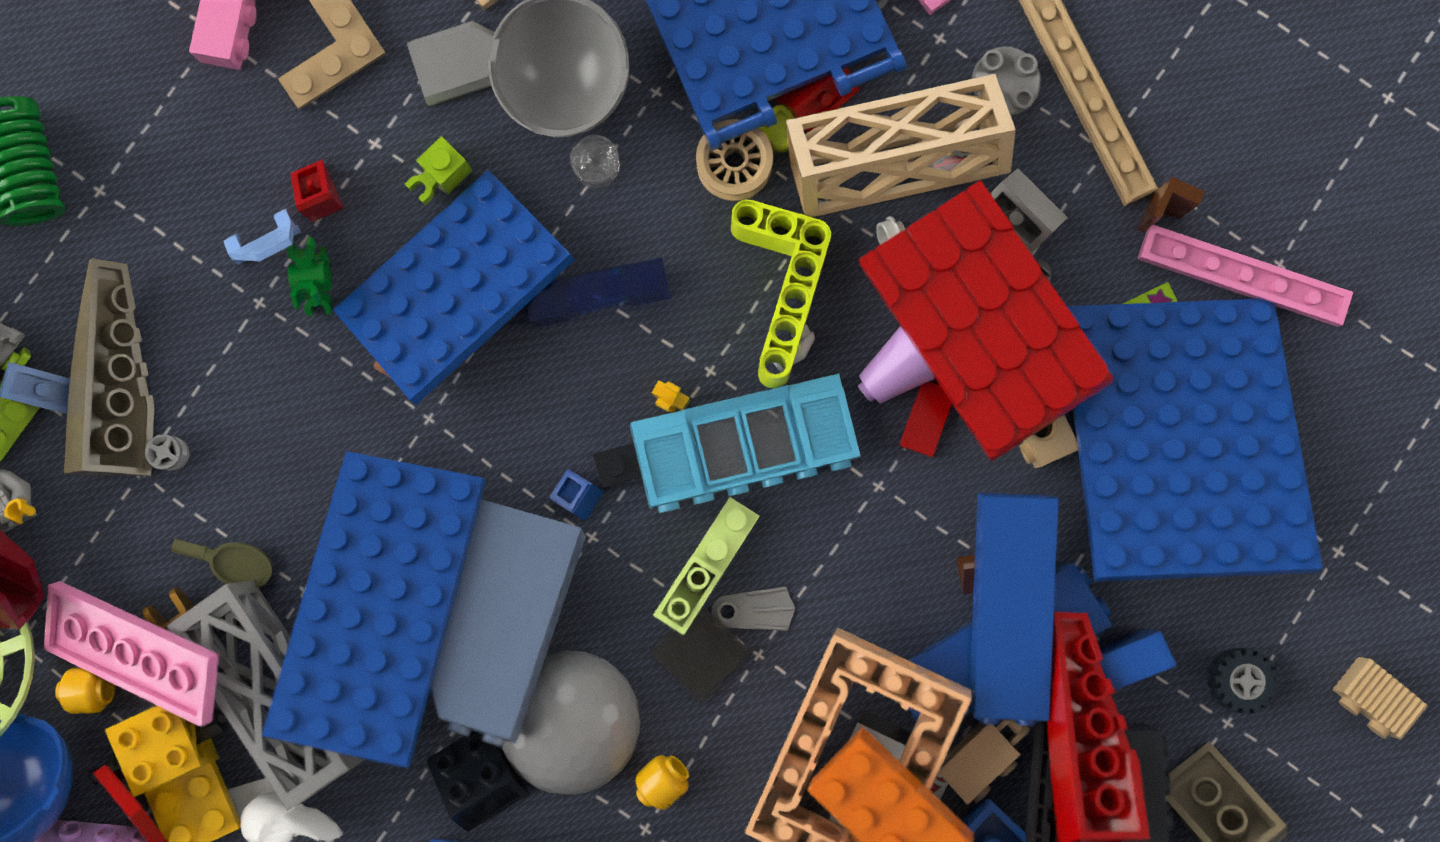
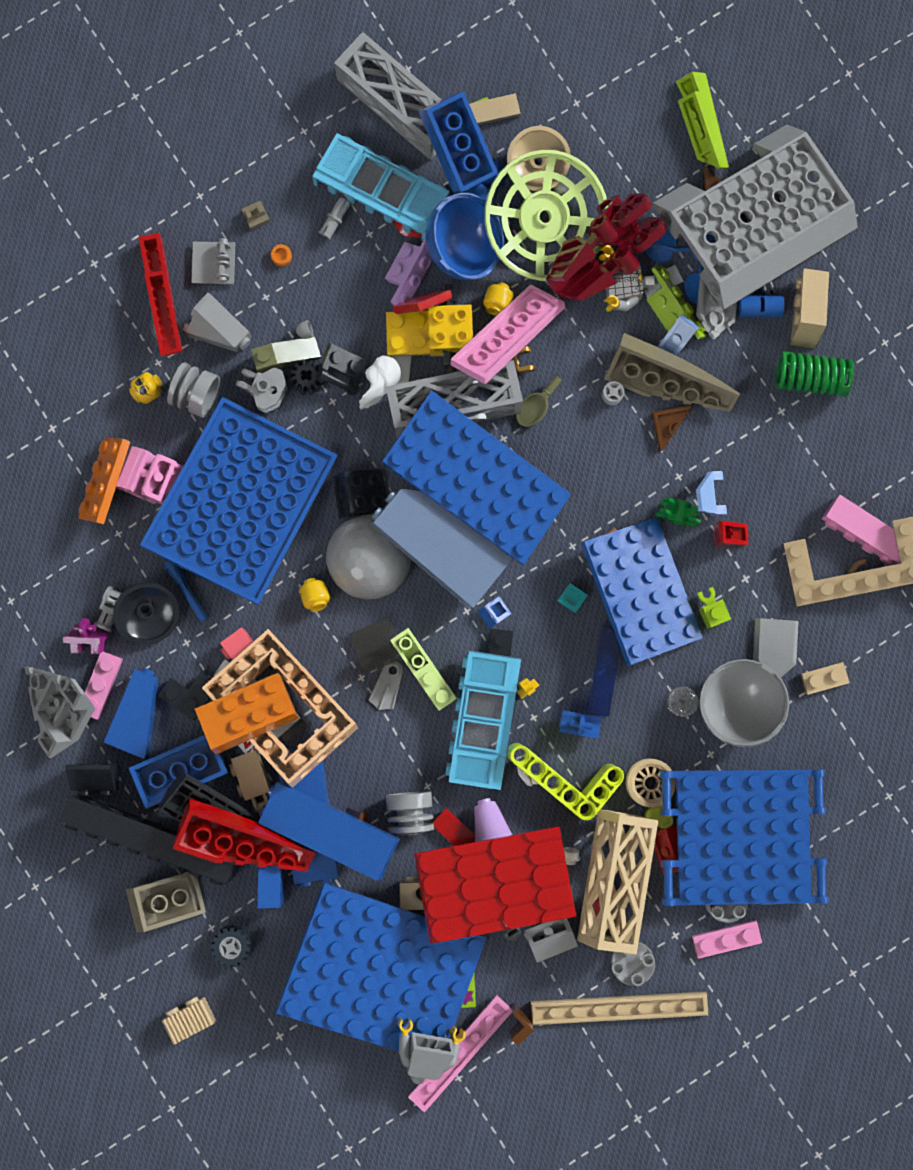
camera: 105 degrees right, 0 degrees up
(182, 352) = (667, 422): none -> reddish brown tile
(506, 386) = (572, 598): none -> teal plate
(691, 296) = (580, 724): none -> blue hips
(930, 495) = (410, 812): none -> light grey wheel
(1274, 320) = (426, 1054): none -> light grey torso

